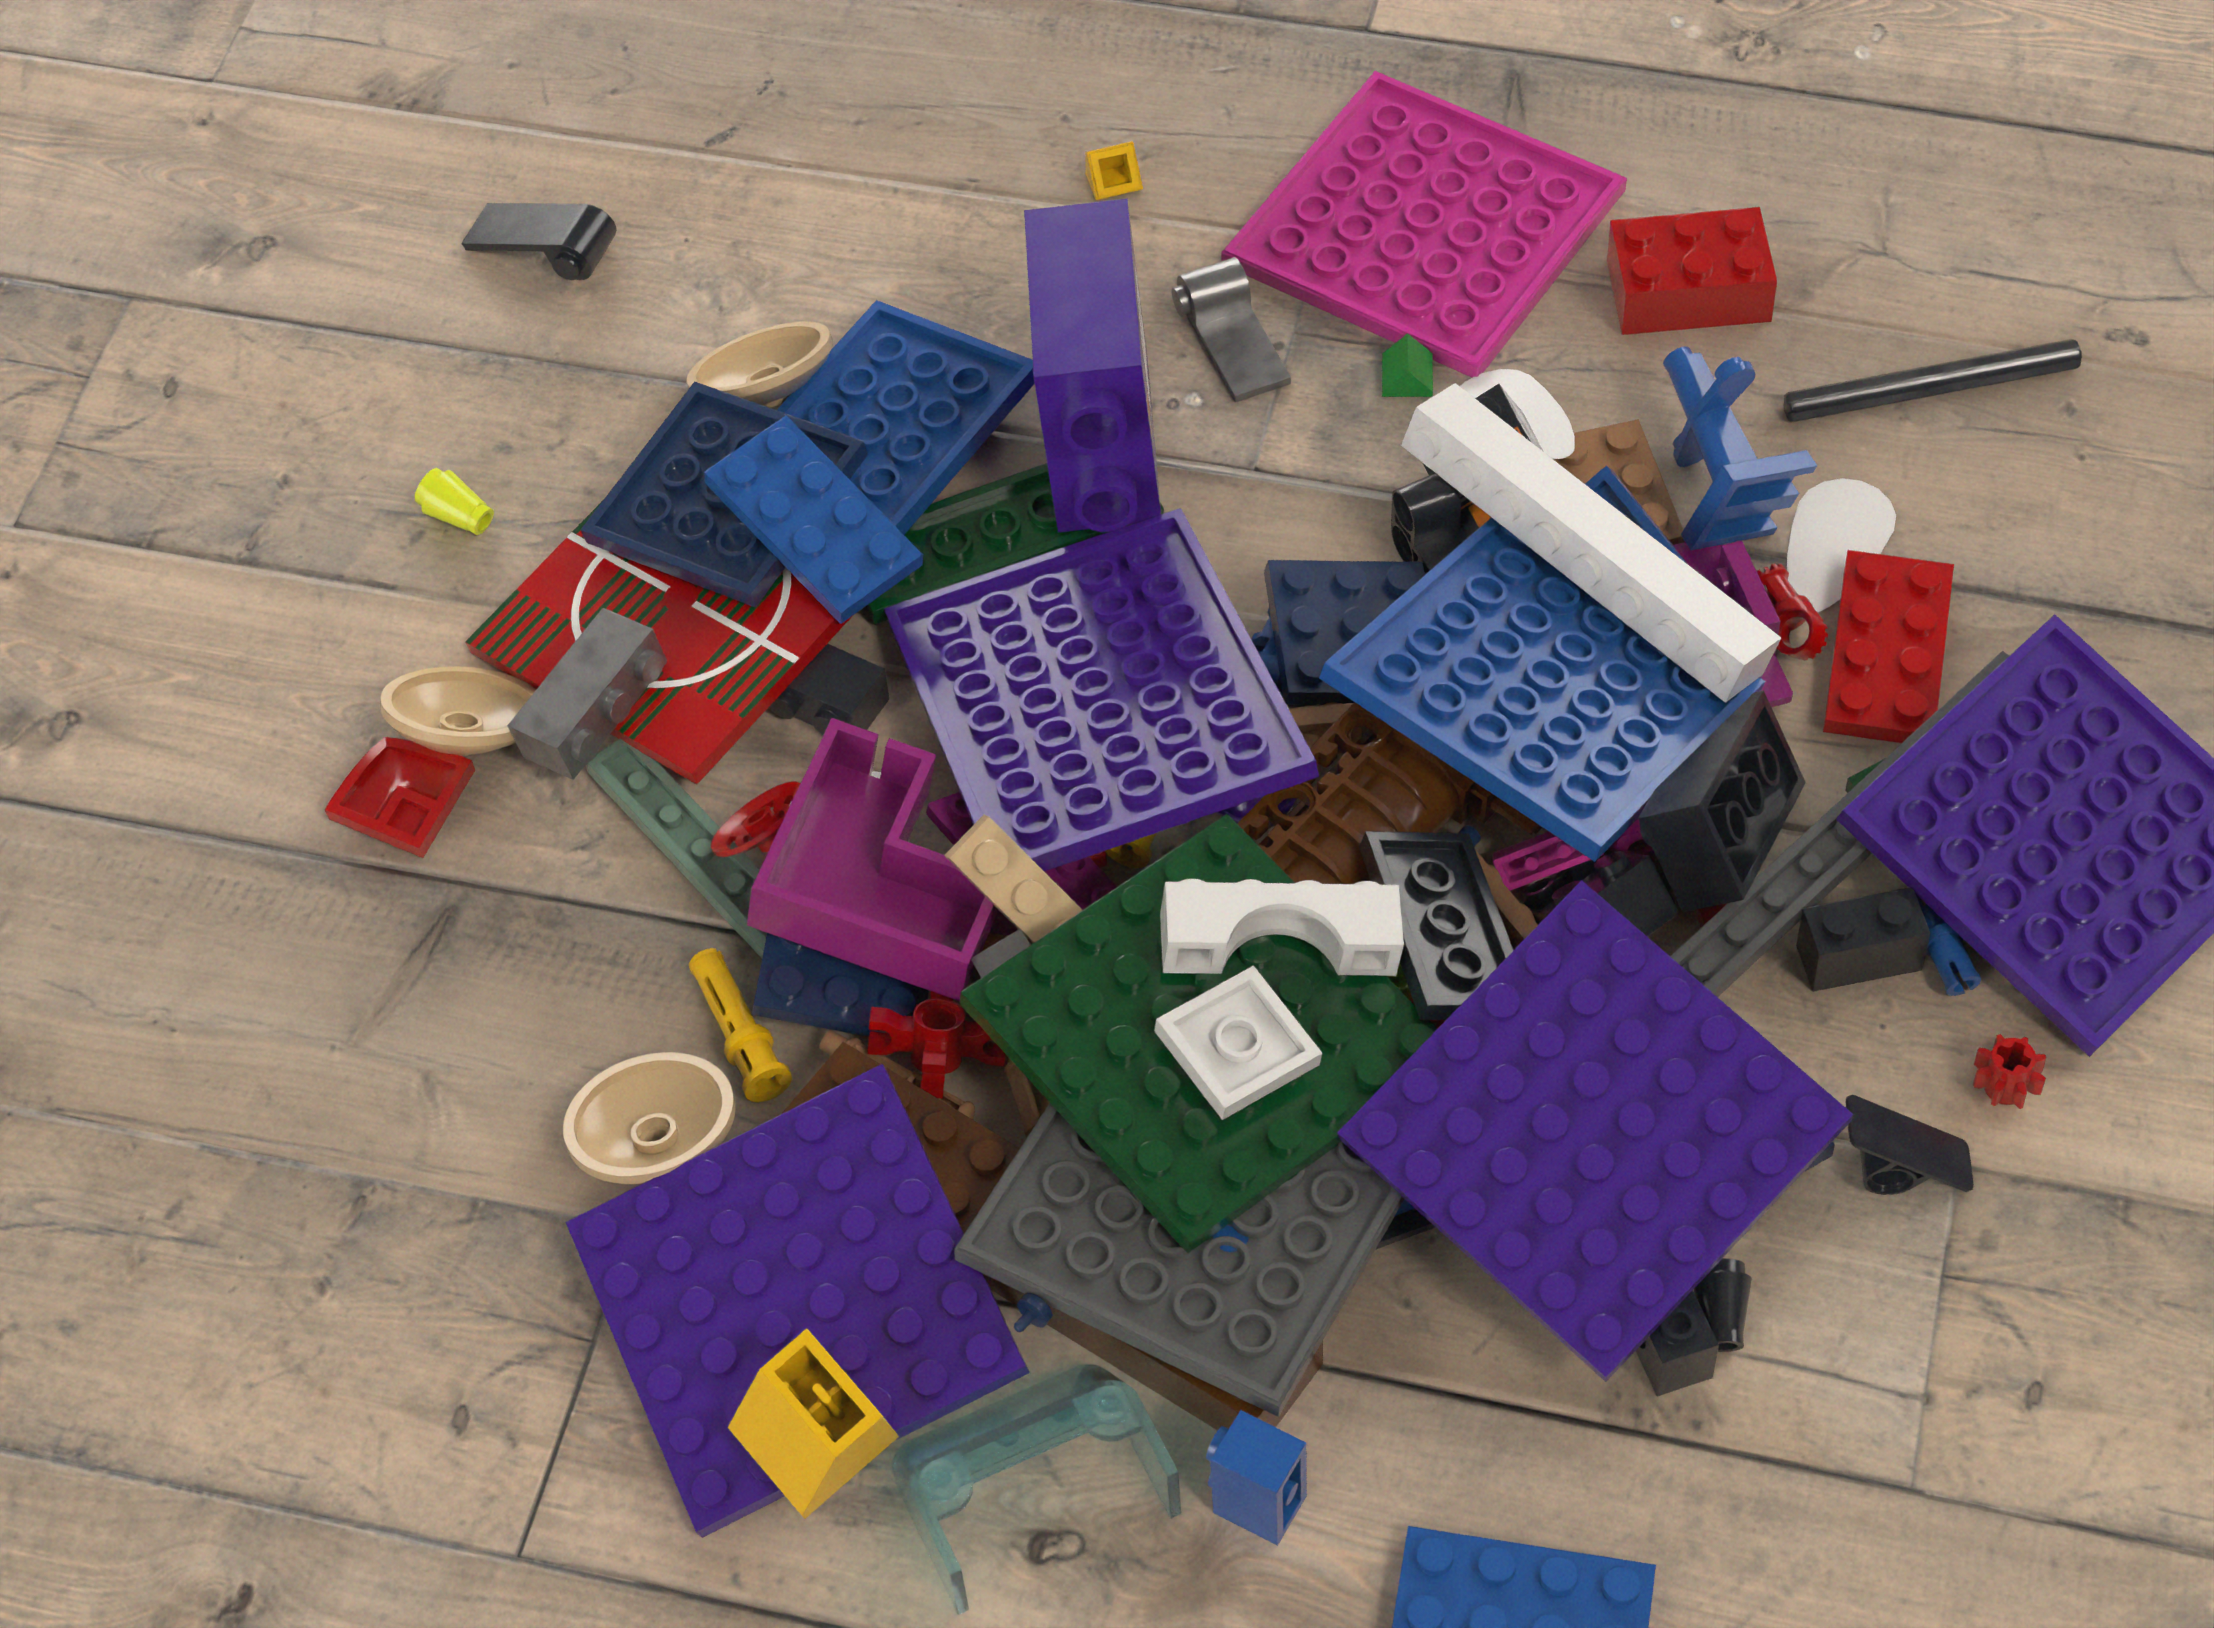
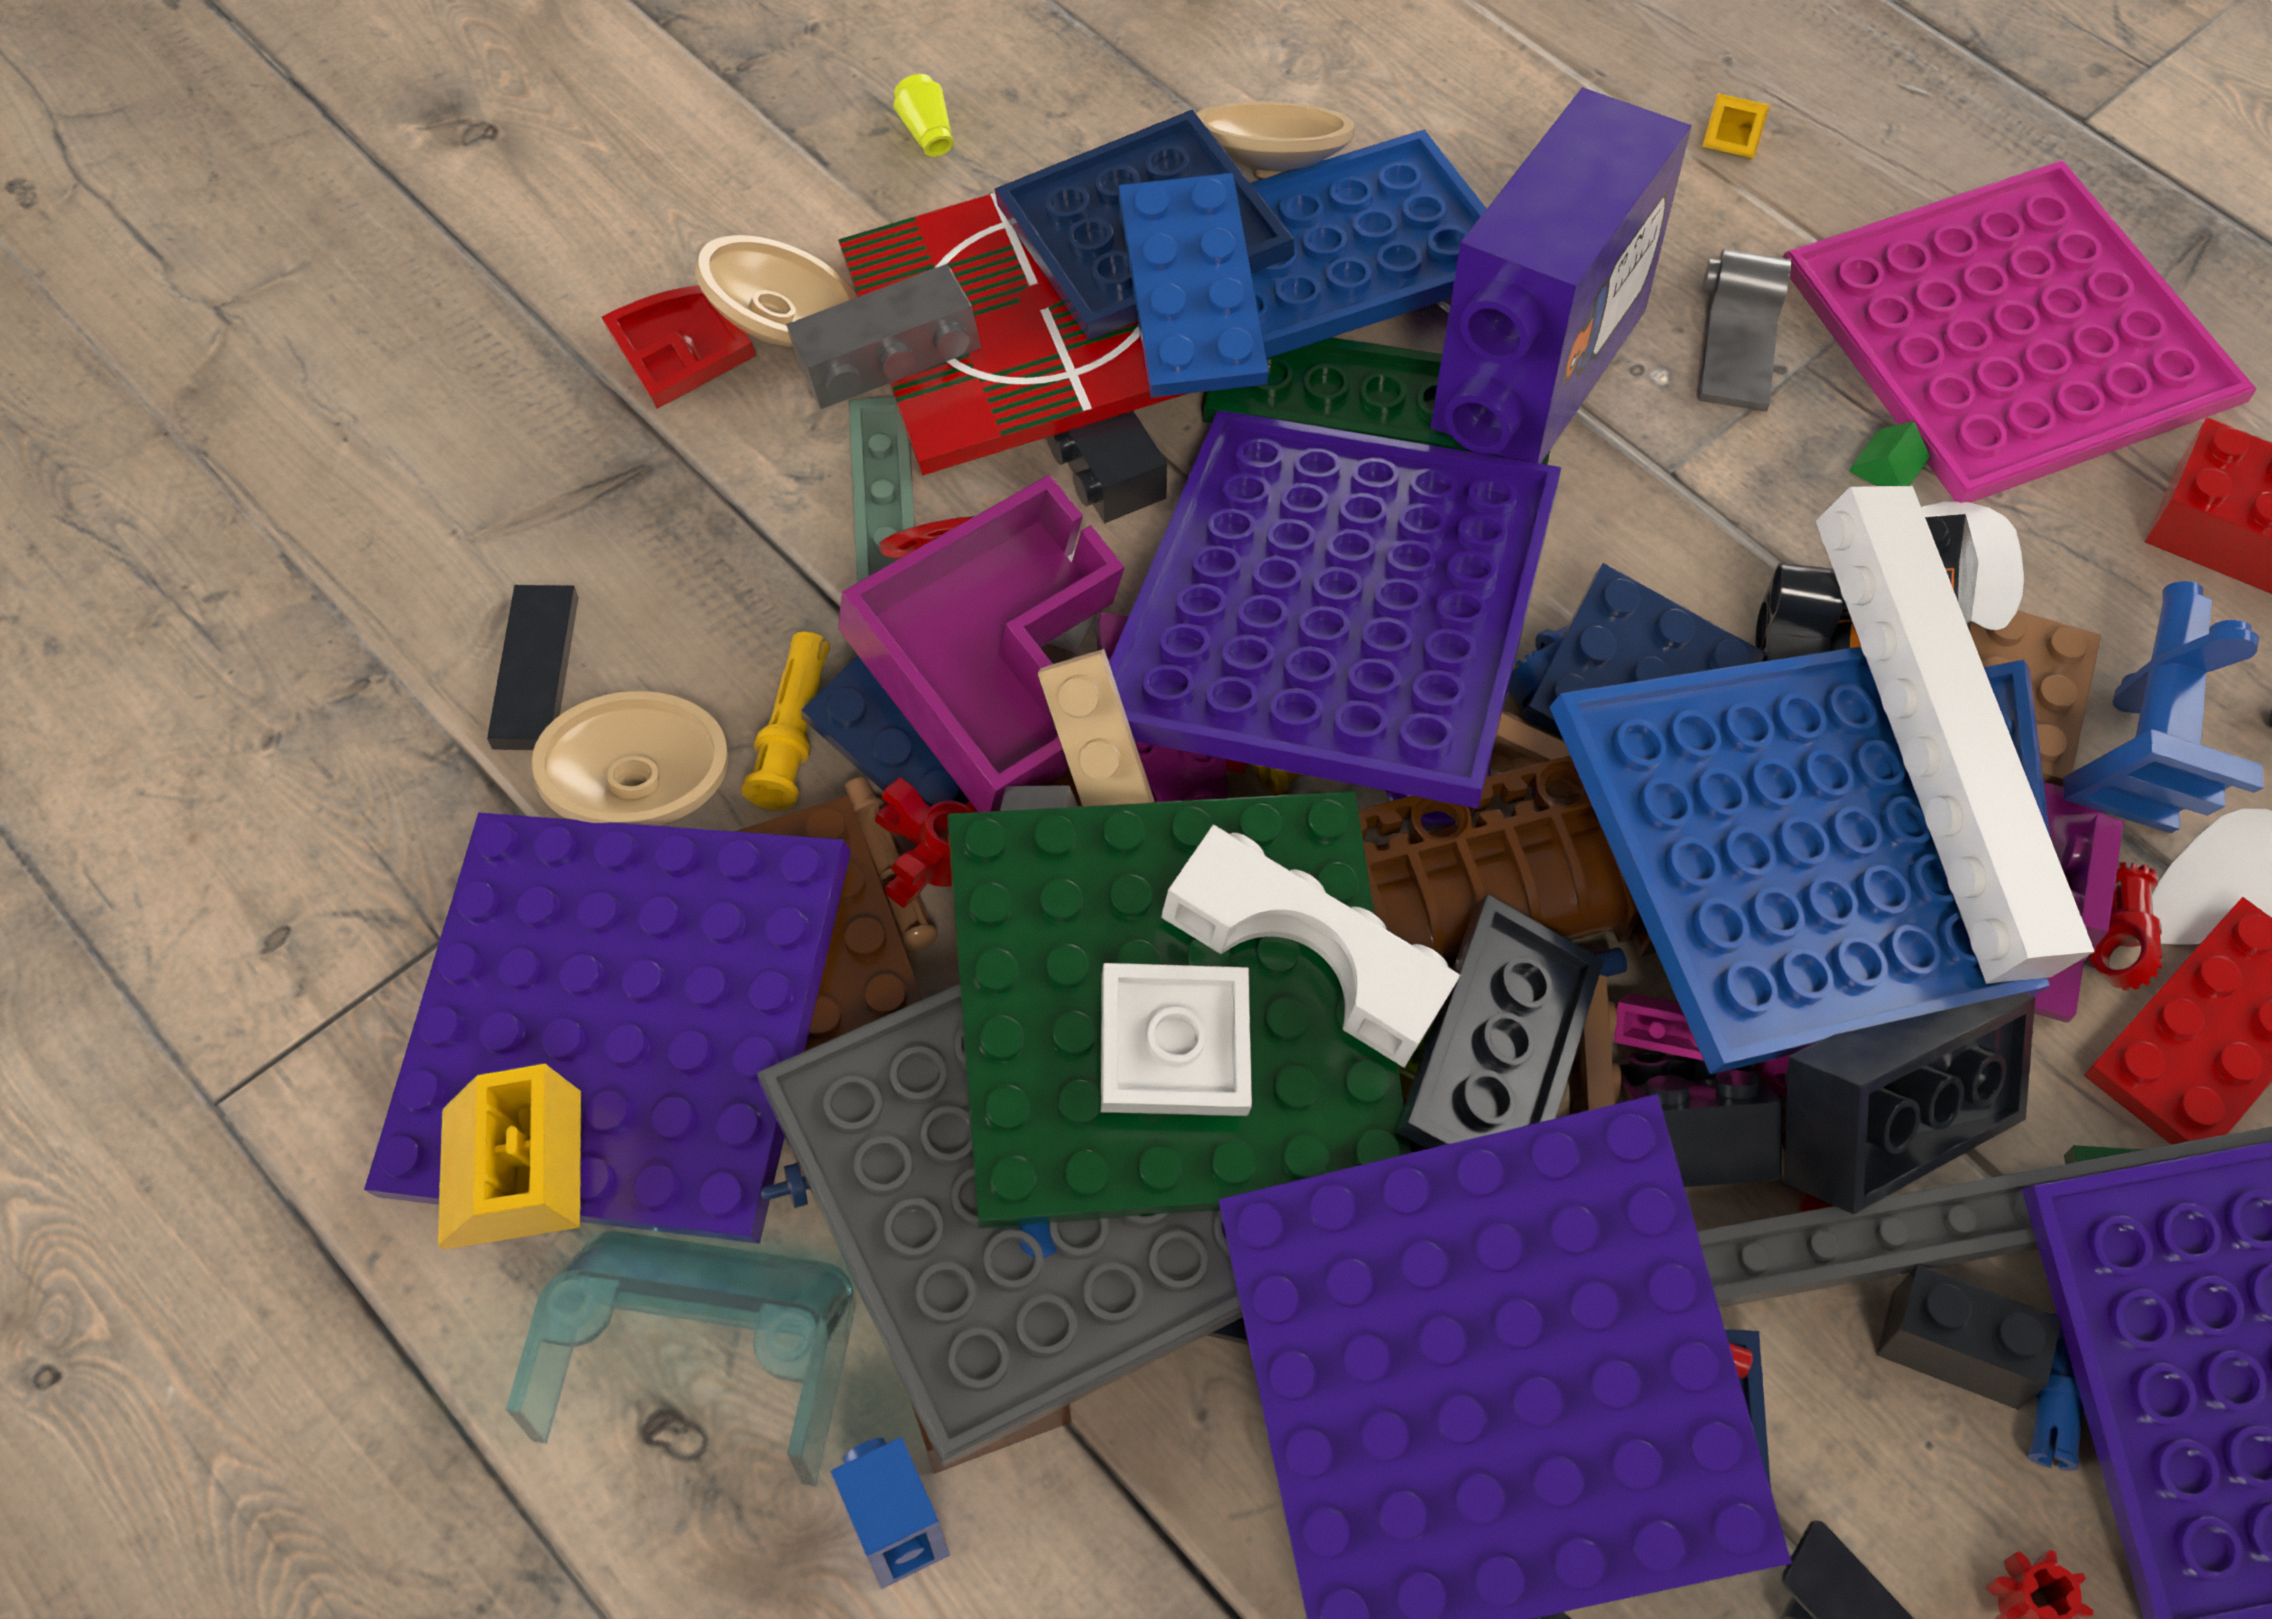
camera: 30 degrees right, 5 degrees up
(496, 1105) = (532, 665): none -> black tile

